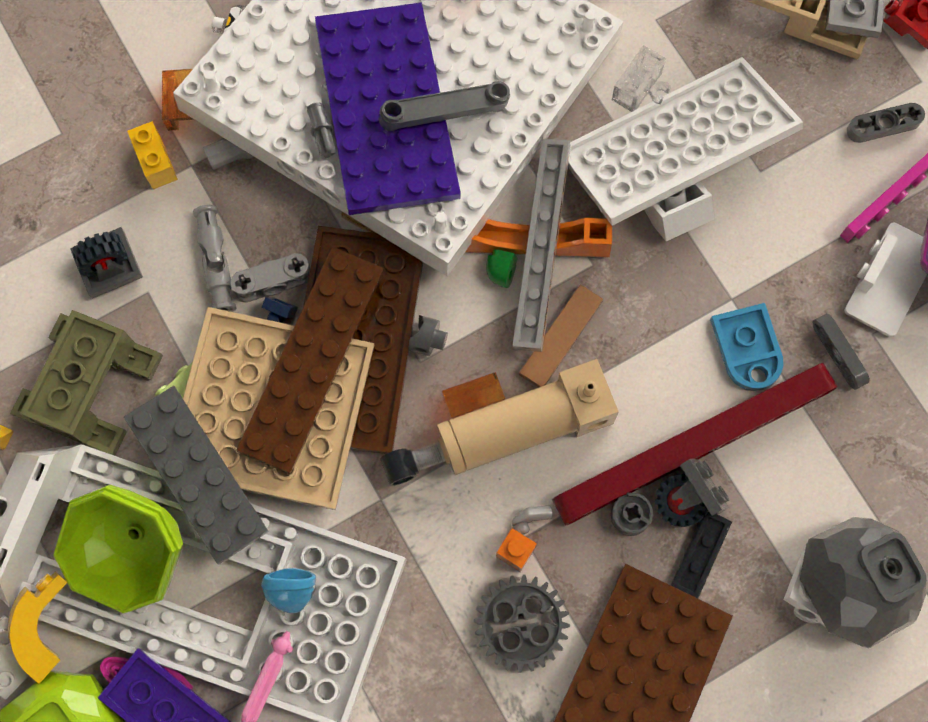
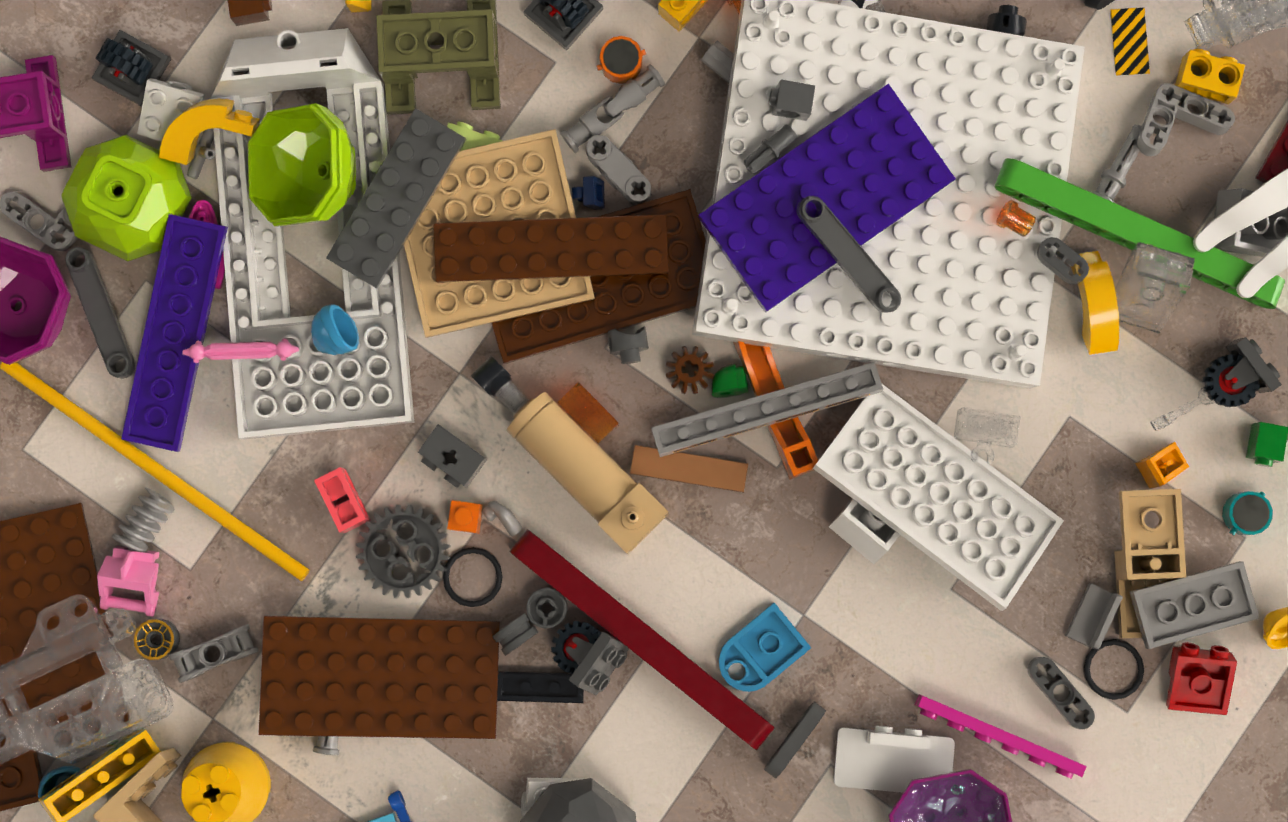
camera: 70 degrees right, 10 degrees up
(56, 643) = (202, 152): none -> light grey piece
(175, 233) = (621, 59): none -> piece
(289, 92) = (792, 100): none -> dark grey brick
(438, 538) = (439, 444): none -> dark grey brick
(448, 657) = (342, 500): none -> coral brick
(466, 292) = (684, 378): none -> reddish brown gear
(598, 565) = (498, 573): none -> black piece
(644, 552) = (515, 634): none -> dark grey wheel
(833, 68) = (1093, 616): none -> light grey panel
(877, 96) = (1134, 687): none -> black piece

